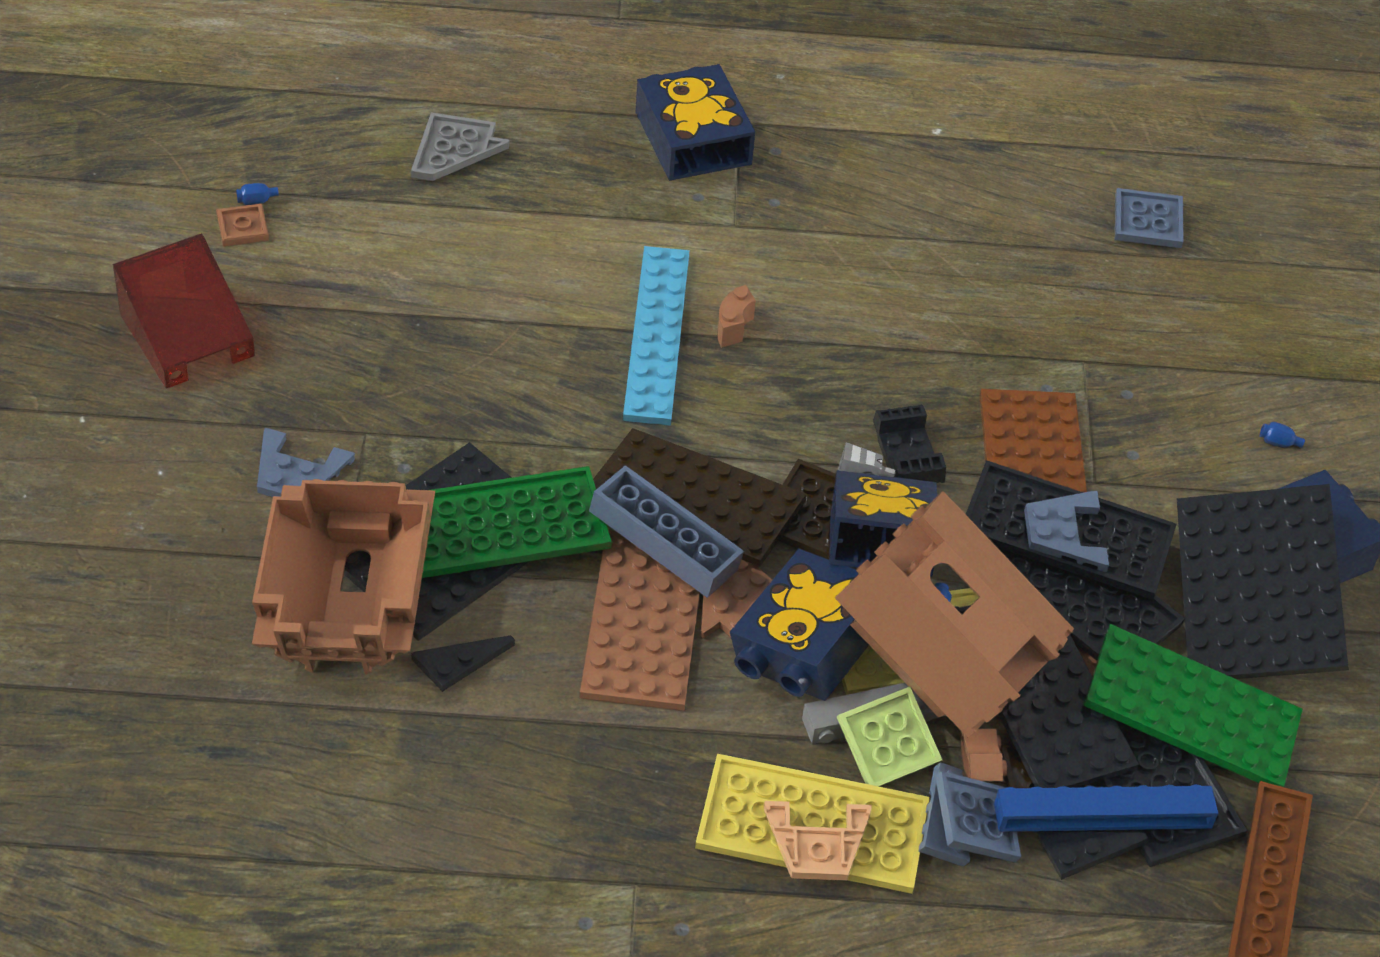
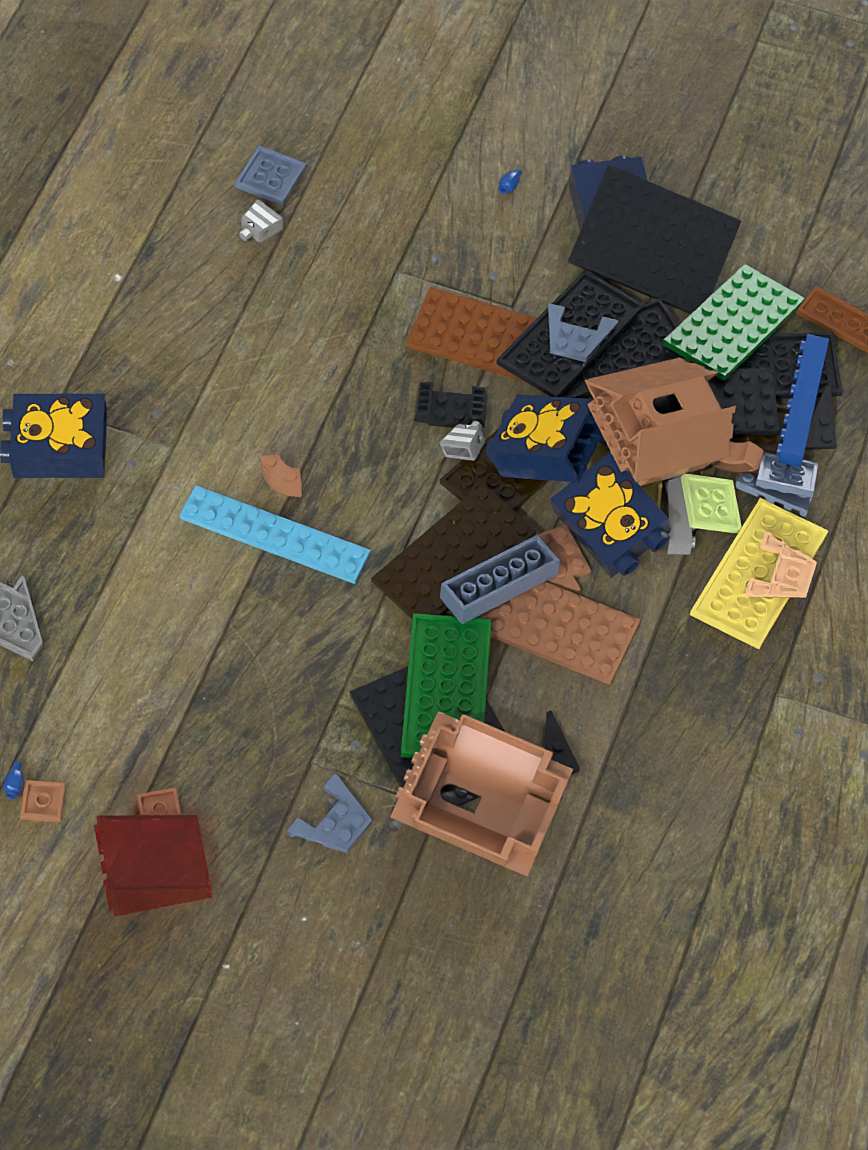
camera: 70 degrees left, 10 degrees up
(265, 317) = (159, 802): none -> nougat tile
(1074, 222) = (260, 222): none -> light grey torso

